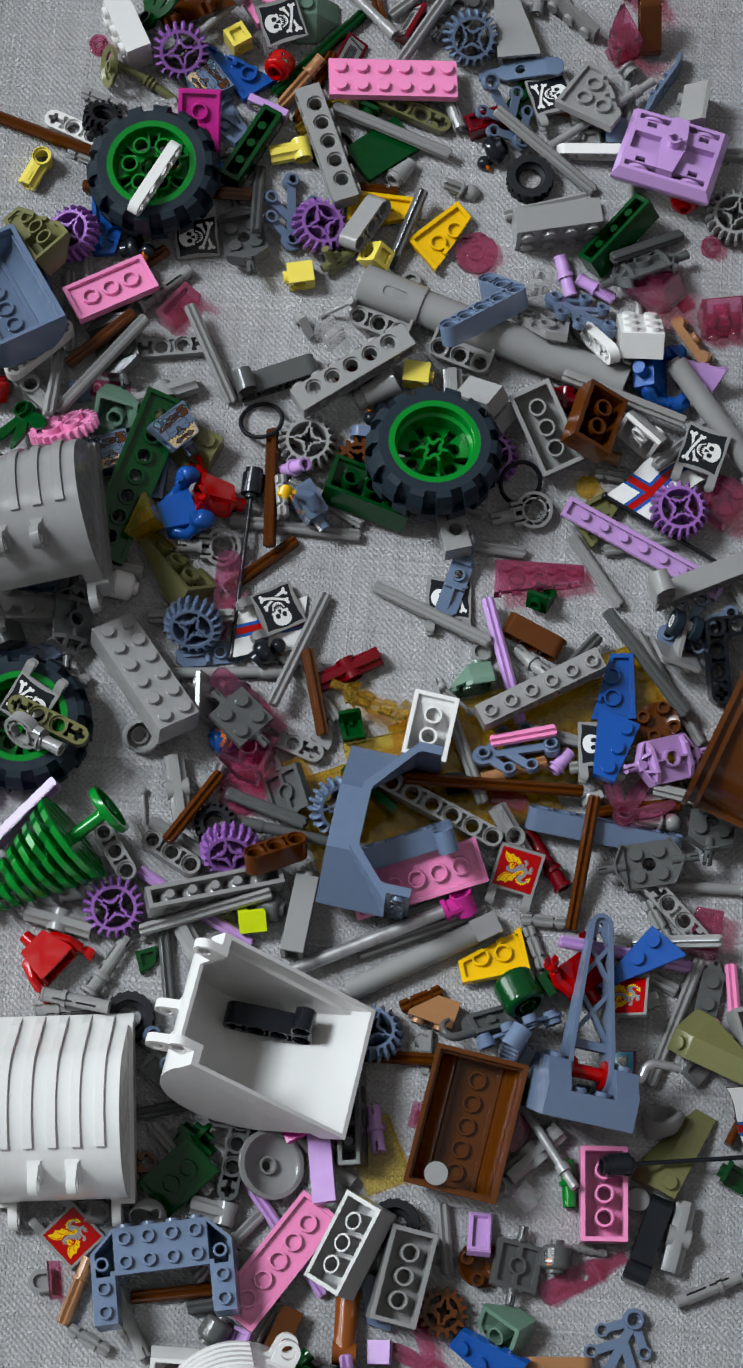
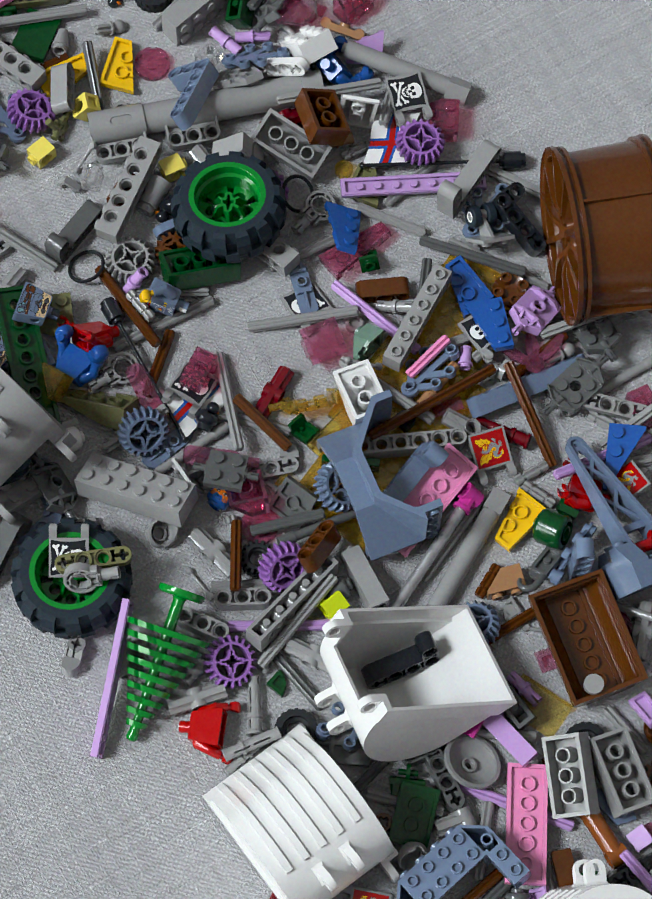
camera: 35 degrees left, 5 degrees down
(96, 1211) = (373, 881): light grey tile -> none
(299, 589) = (198, 369): none -> clear pink brick
(432, 650) = (322, 341): none -> clear pink panel
(542, 546) = (345, 226): none -> blue wing

